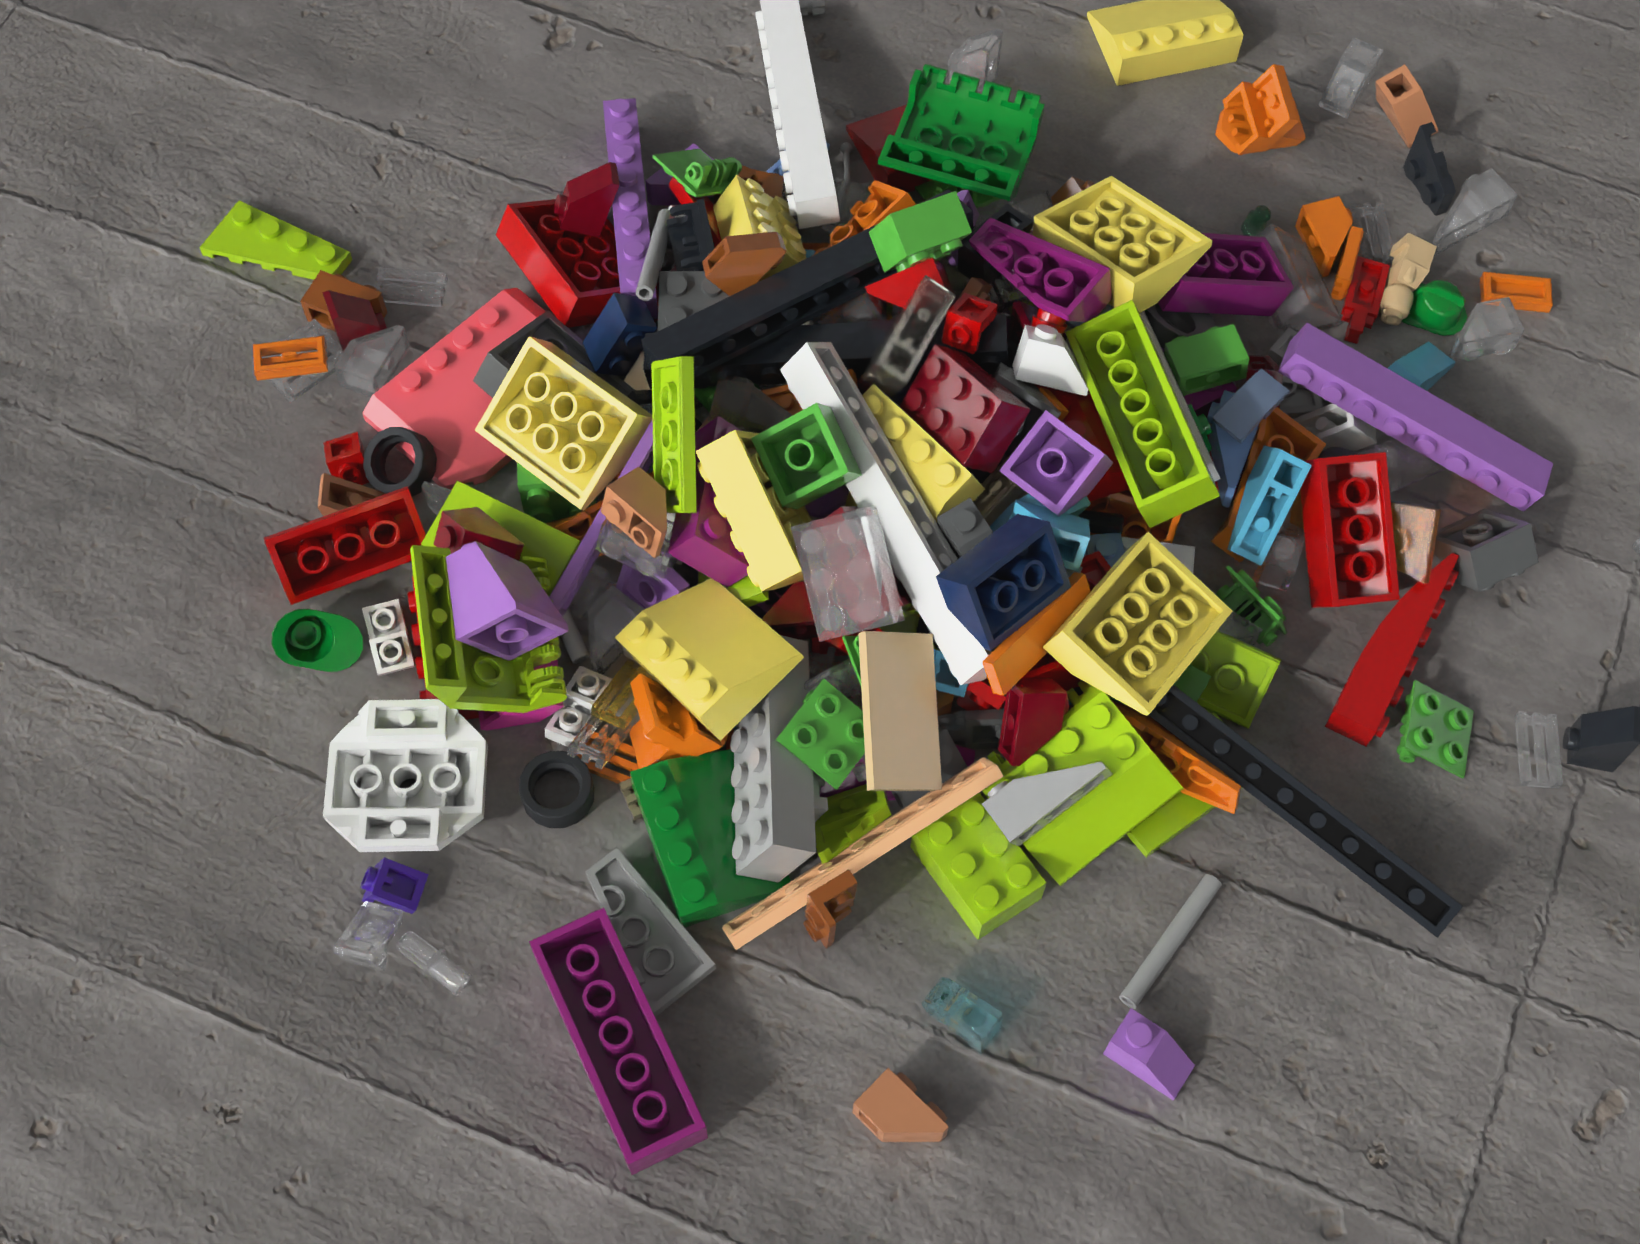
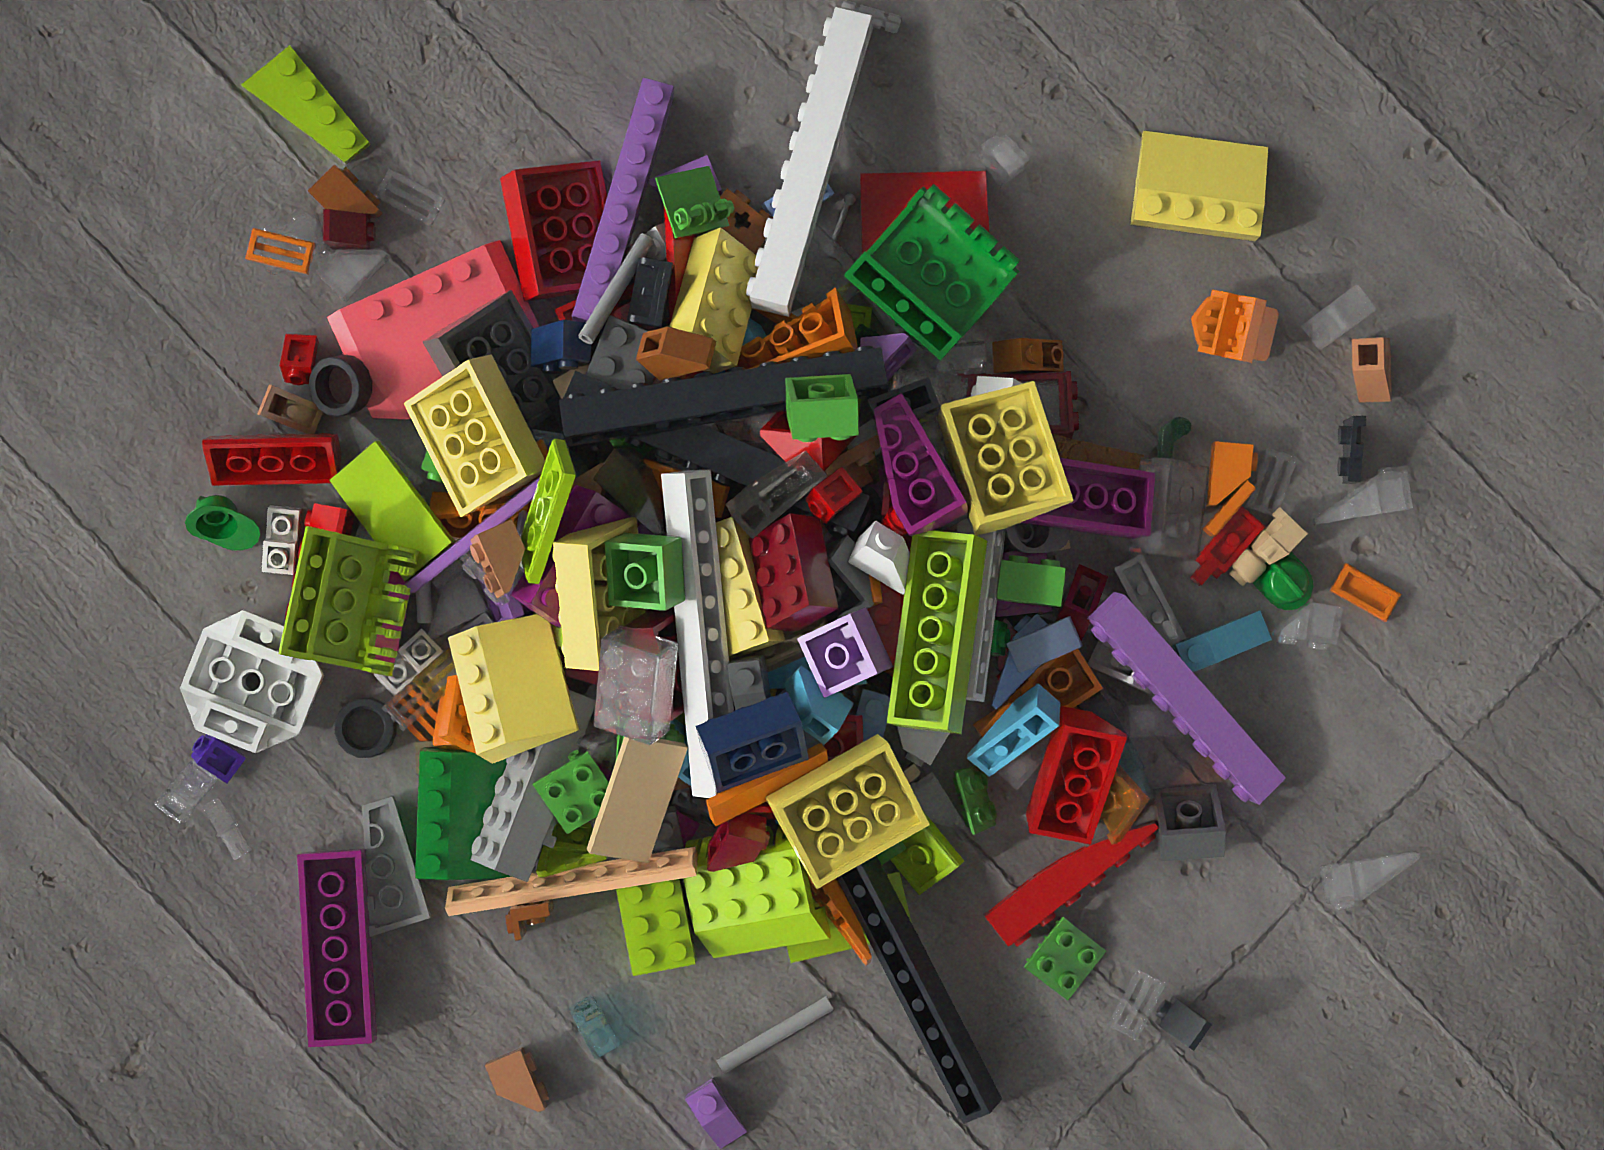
camera: 25 degrees right, 25 degrees up
(471, 525) = (368, 516): dark red slope -> none
(499, 603) = (363, 589): medium lavender slope -> none
(588, 200) = (585, 191): dark red slope -> none
(1034, 801) = (709, 907): light grey slope -> none

